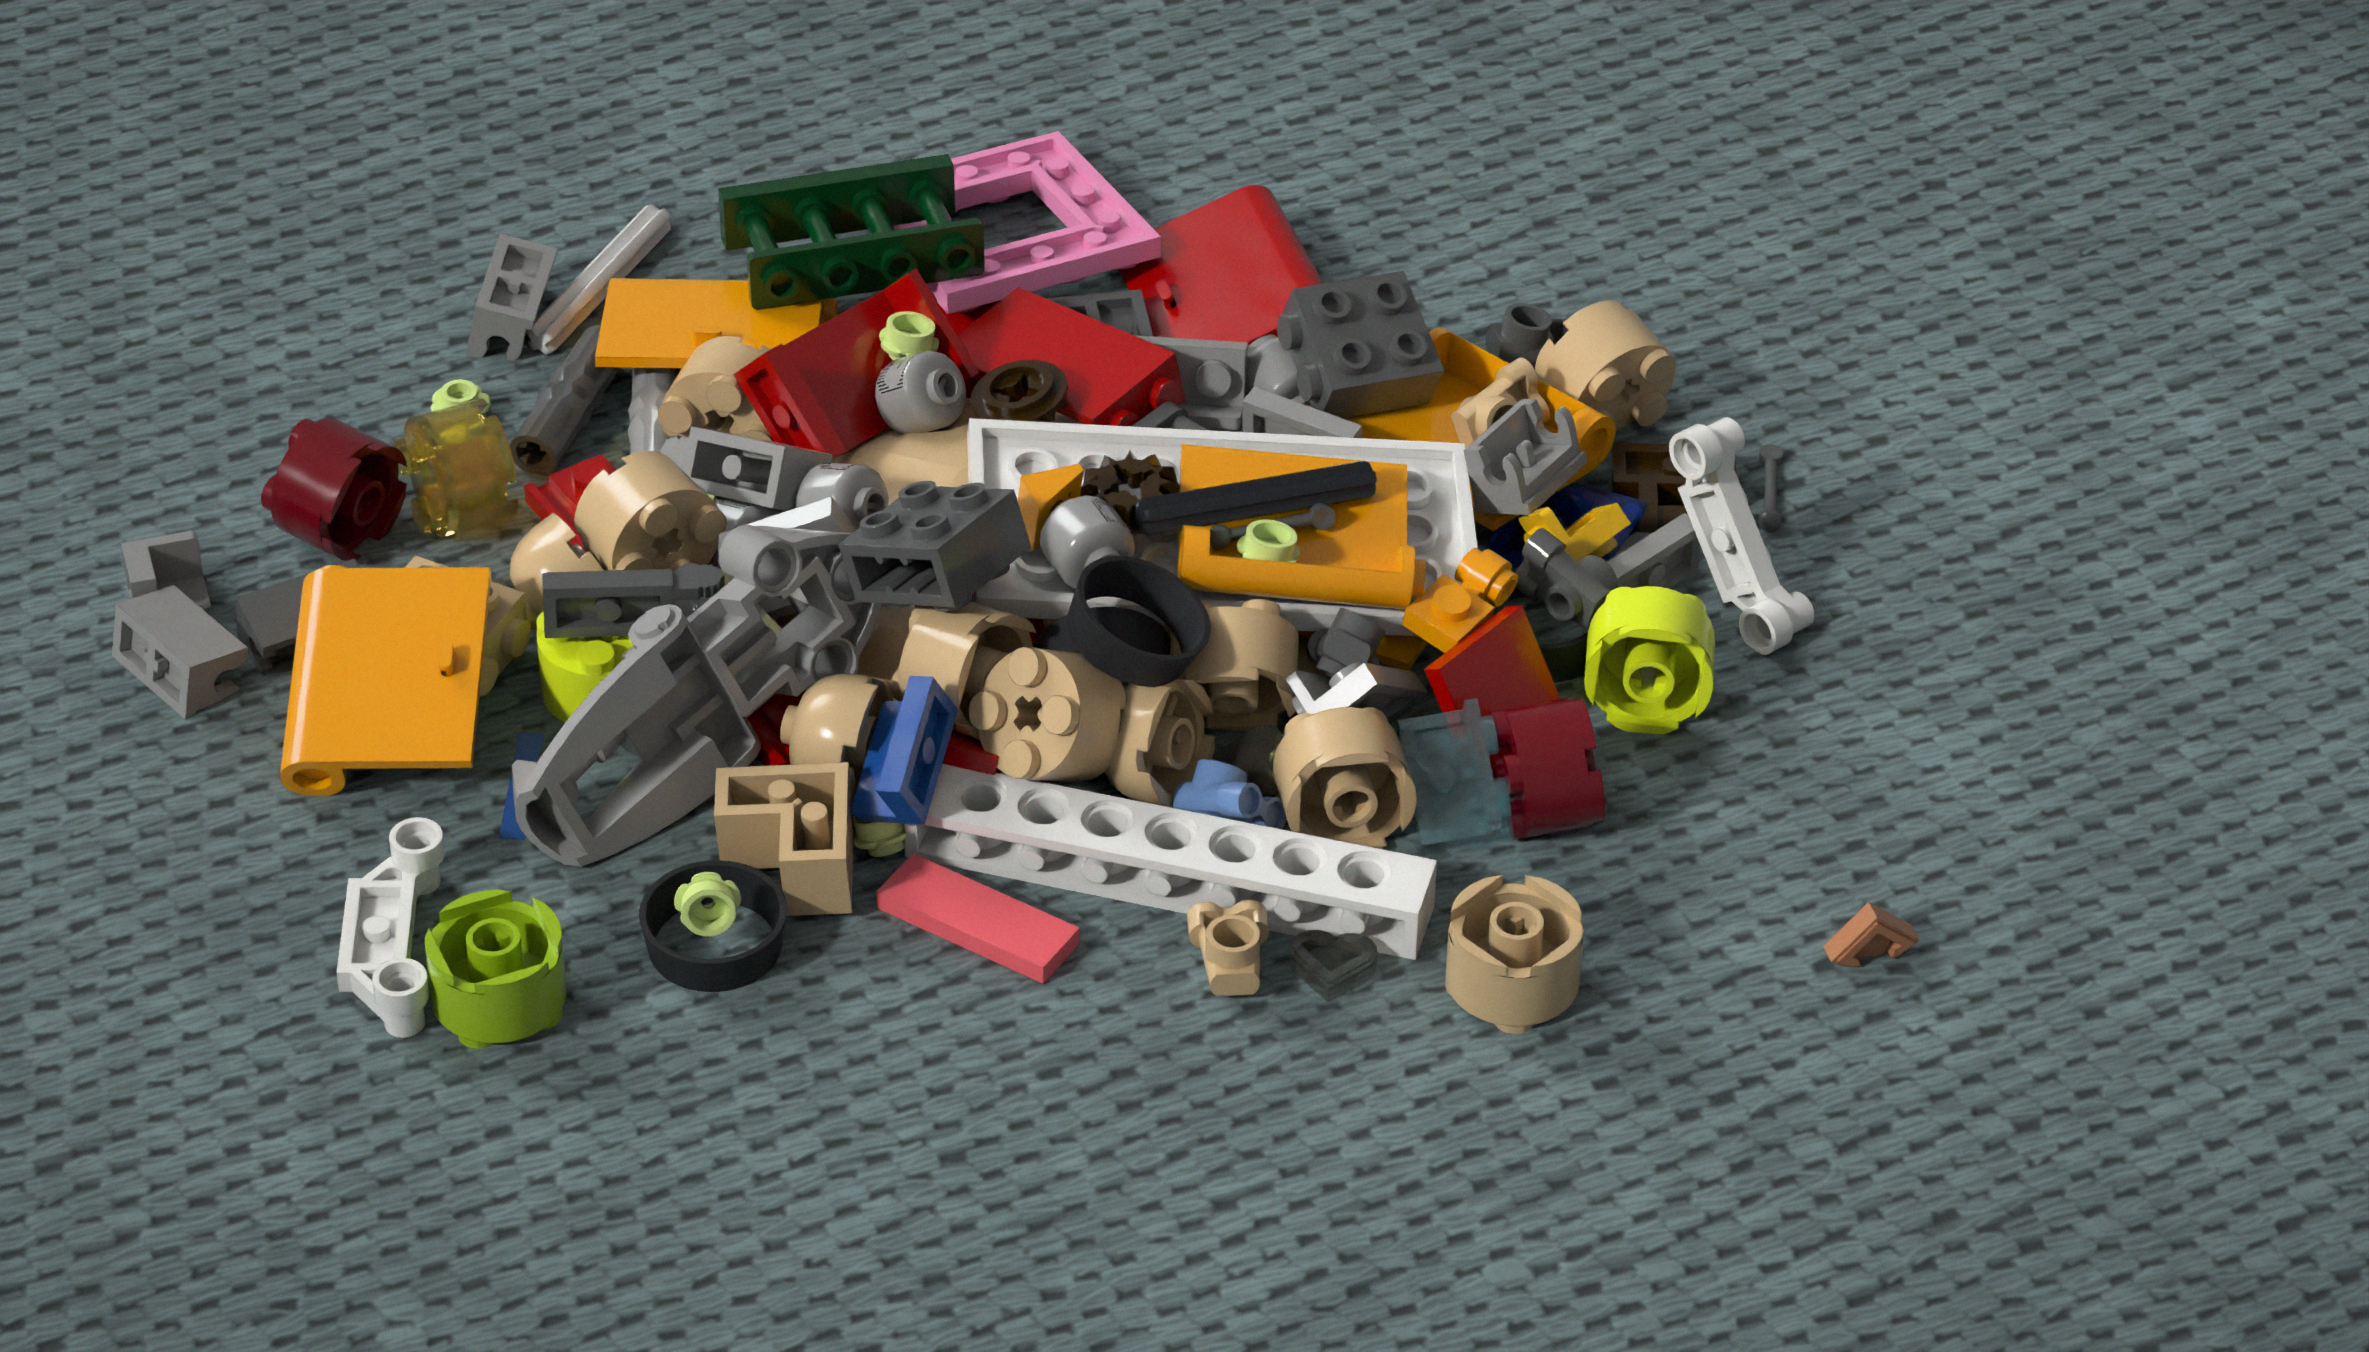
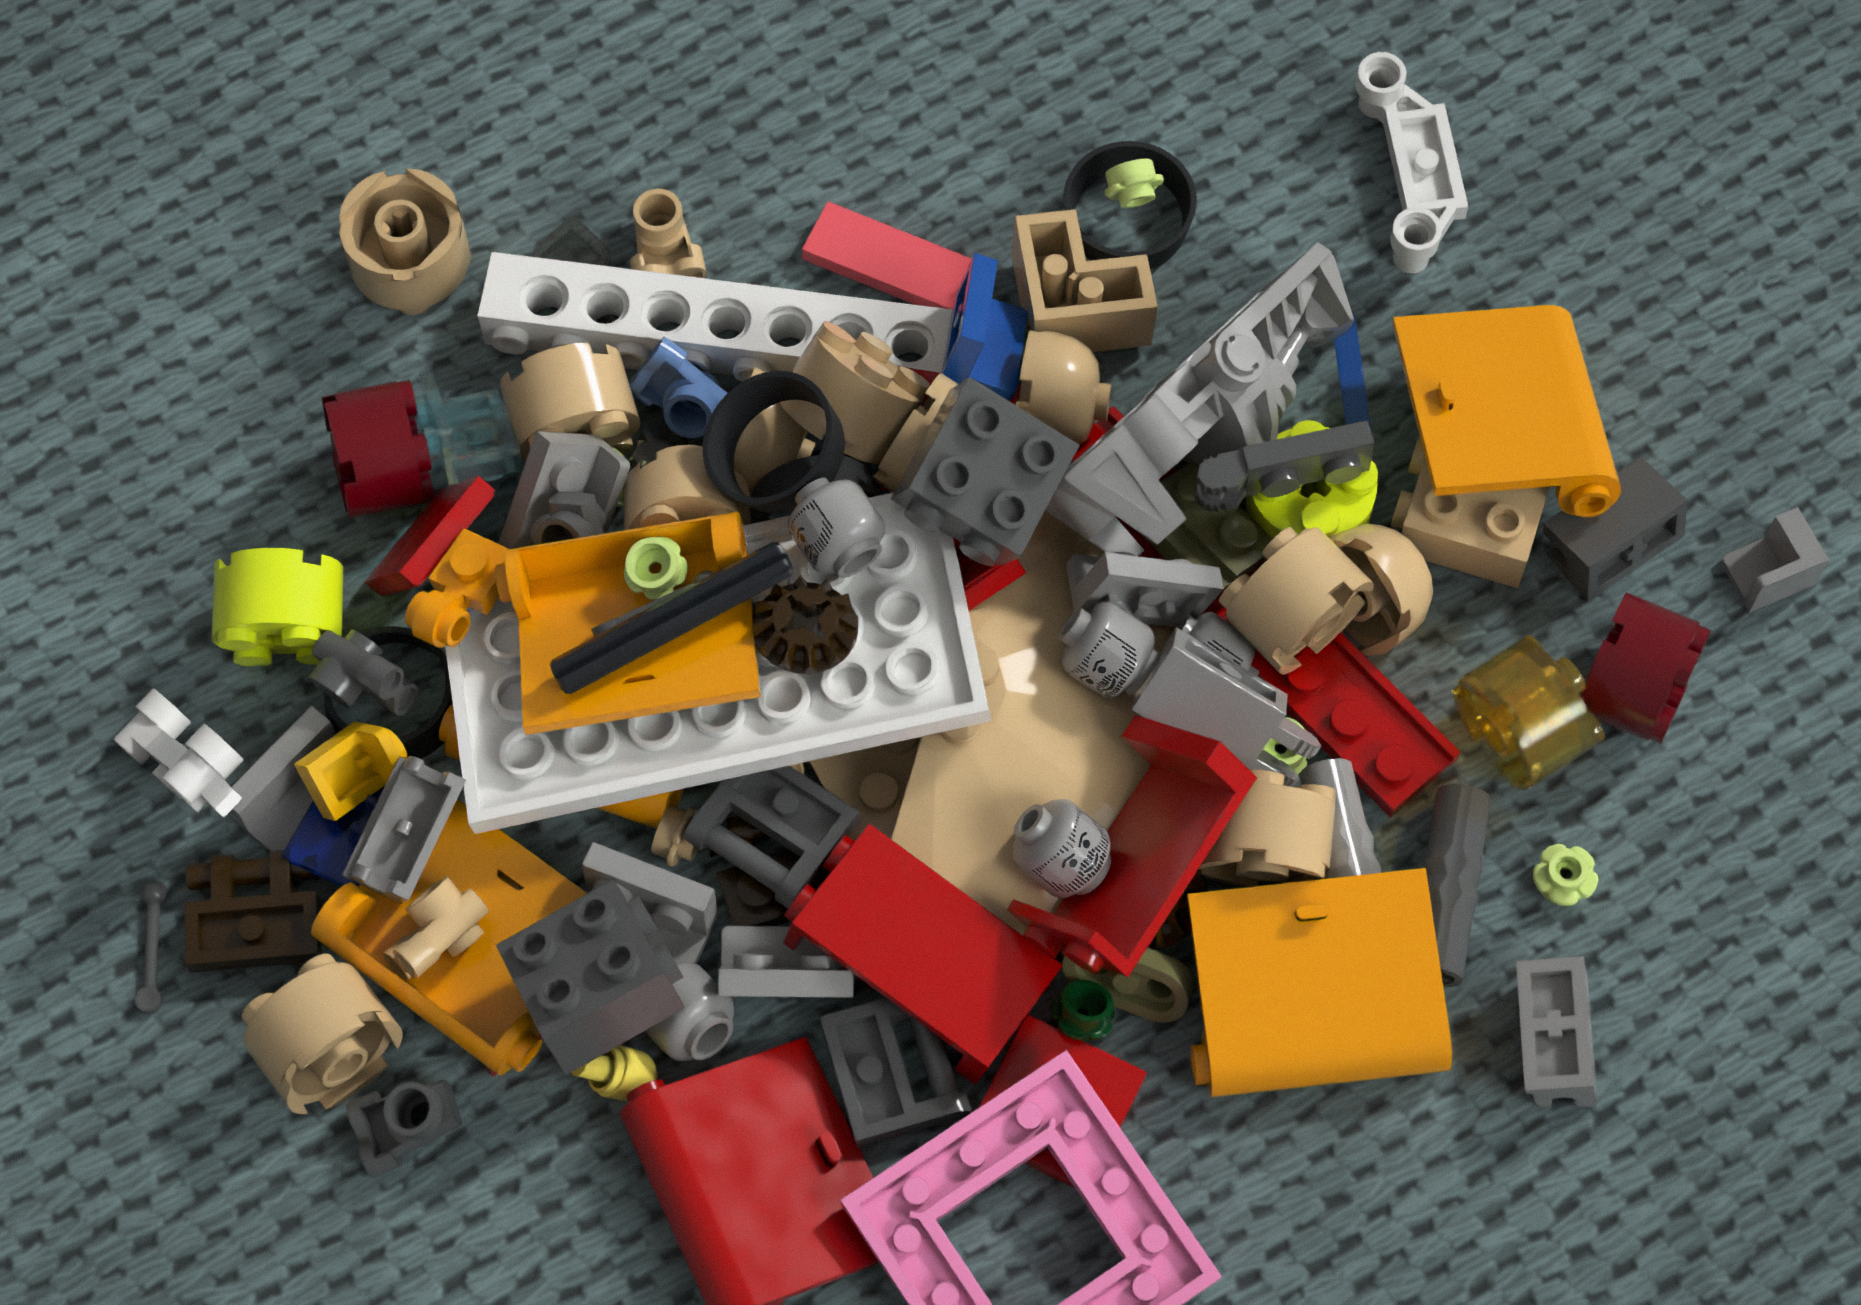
camera: 175 degrees right, 25 degrees up
(176, 649) = (1729, 468): light grey hinge -> none
(496, 968) = (1304, 111): lime brick -> none
(592, 283) = (1472, 1113): white axle -> none
(846, 202) = (1182, 1175): dark green fence -> none
(908, 334) = (1088, 888): yellowish green plate -> none
(1000, 392) = (976, 831): dark brown gear -> none
(1042, 493) = (883, 573): light orange slope -> none
(1870, 934) = (81, 325): nougat tile -> none

